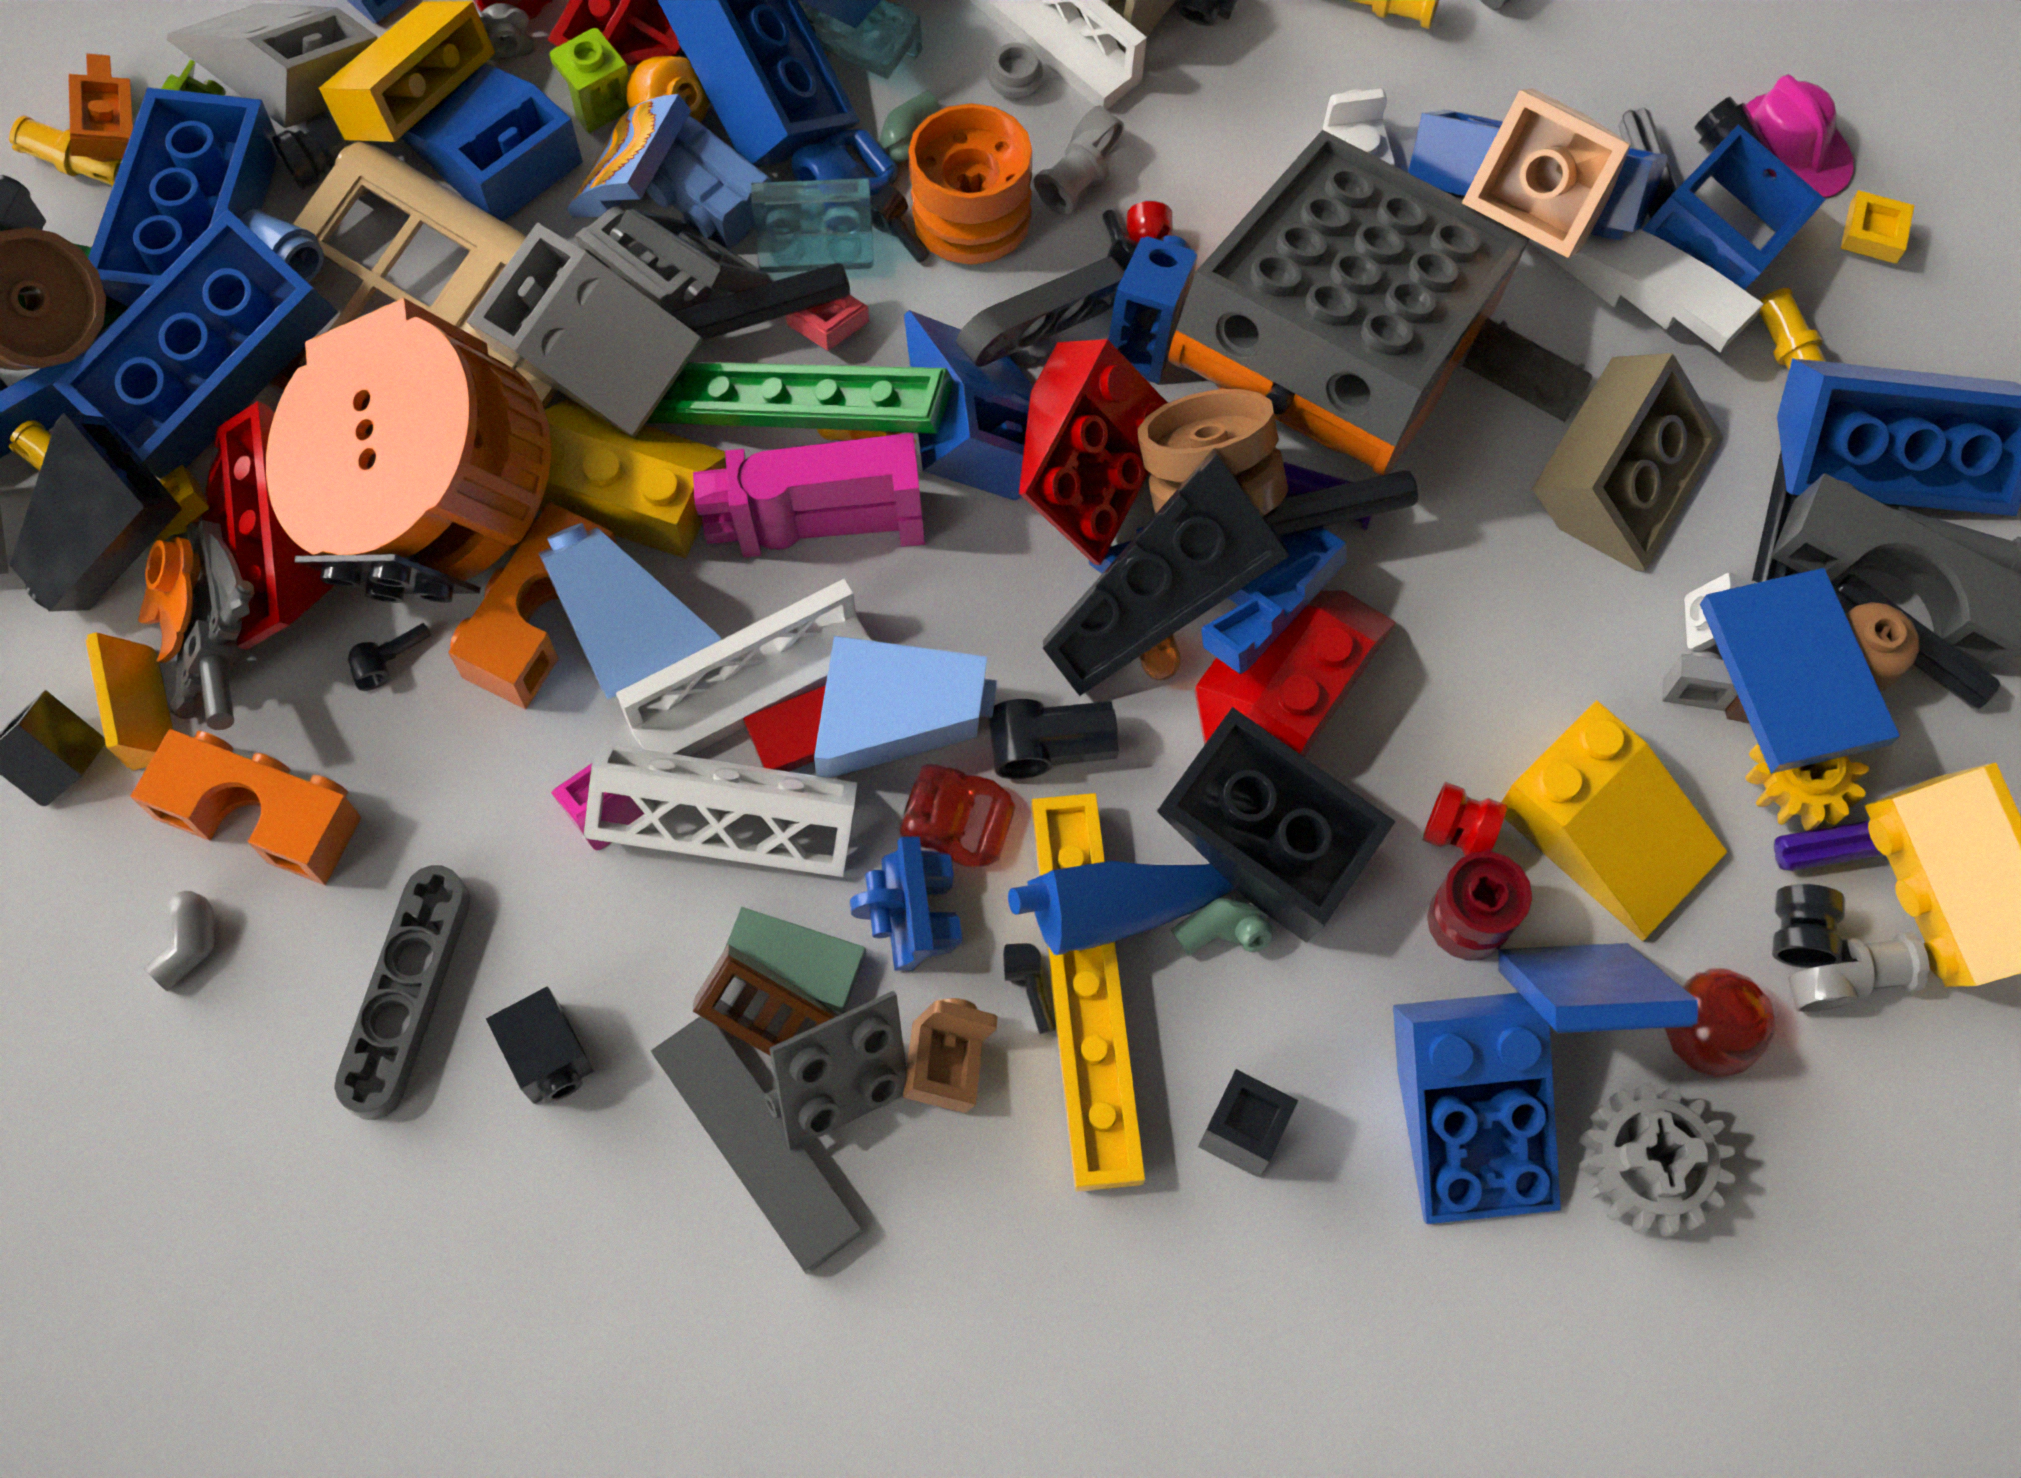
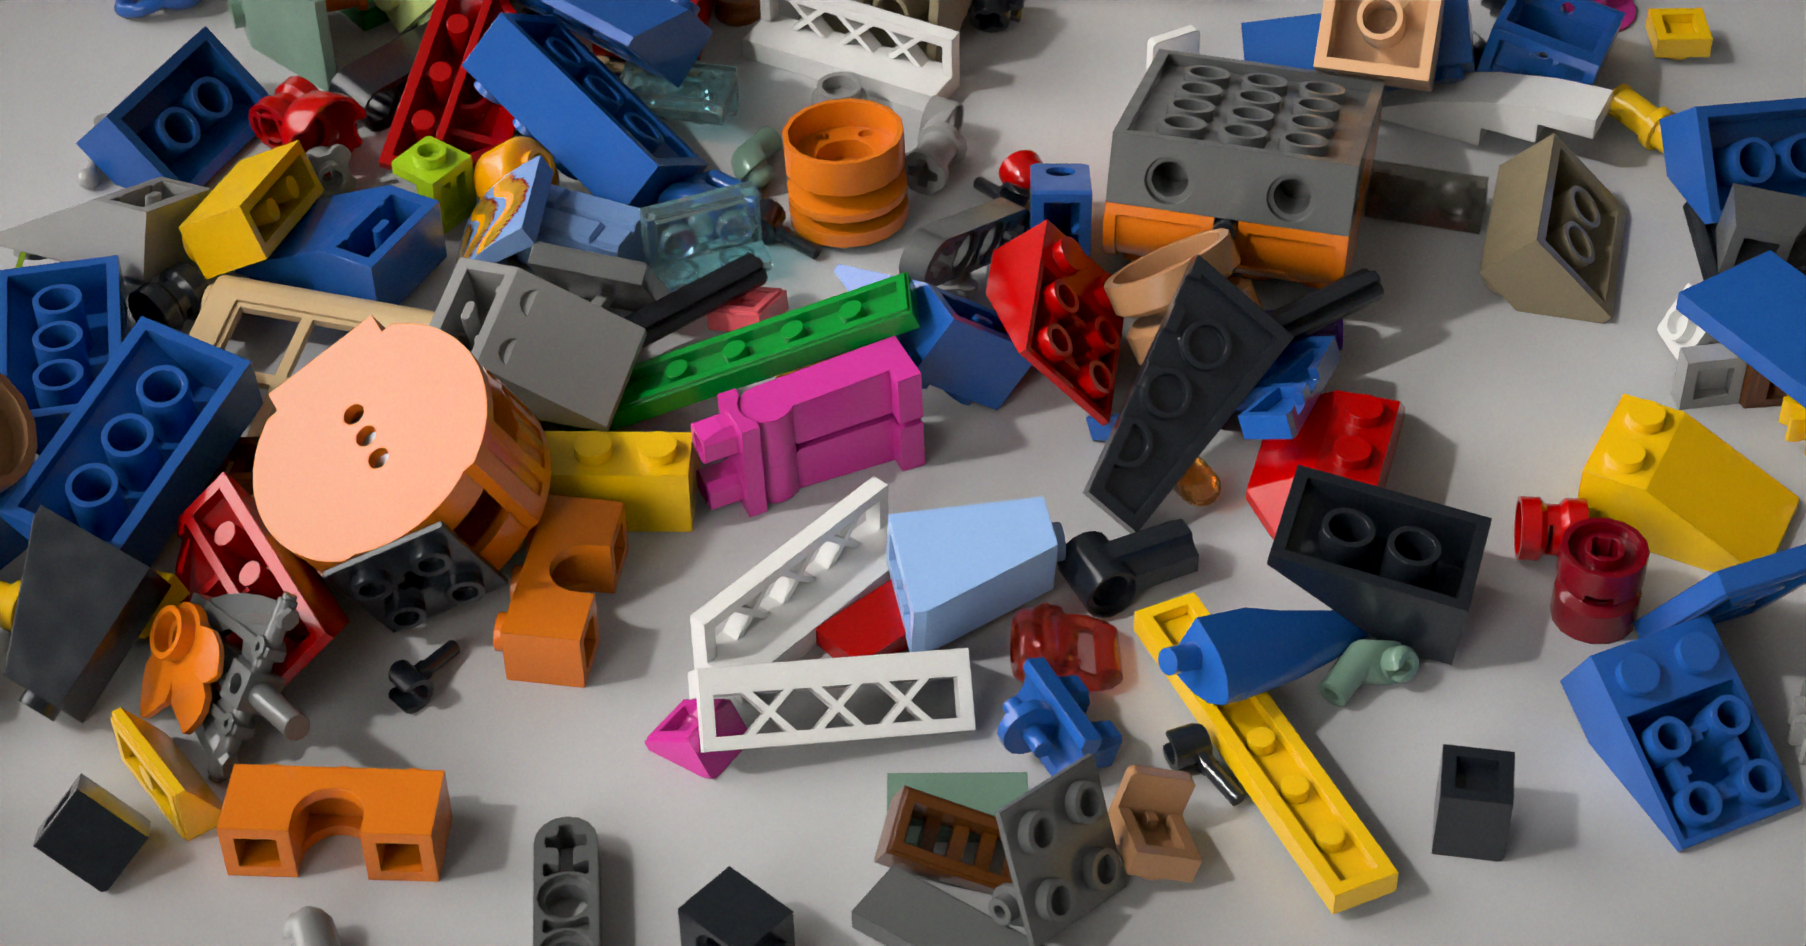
camera: 15 degrees left, 25 degrees down
(619, 609) = (656, 552): light blue slope -> none

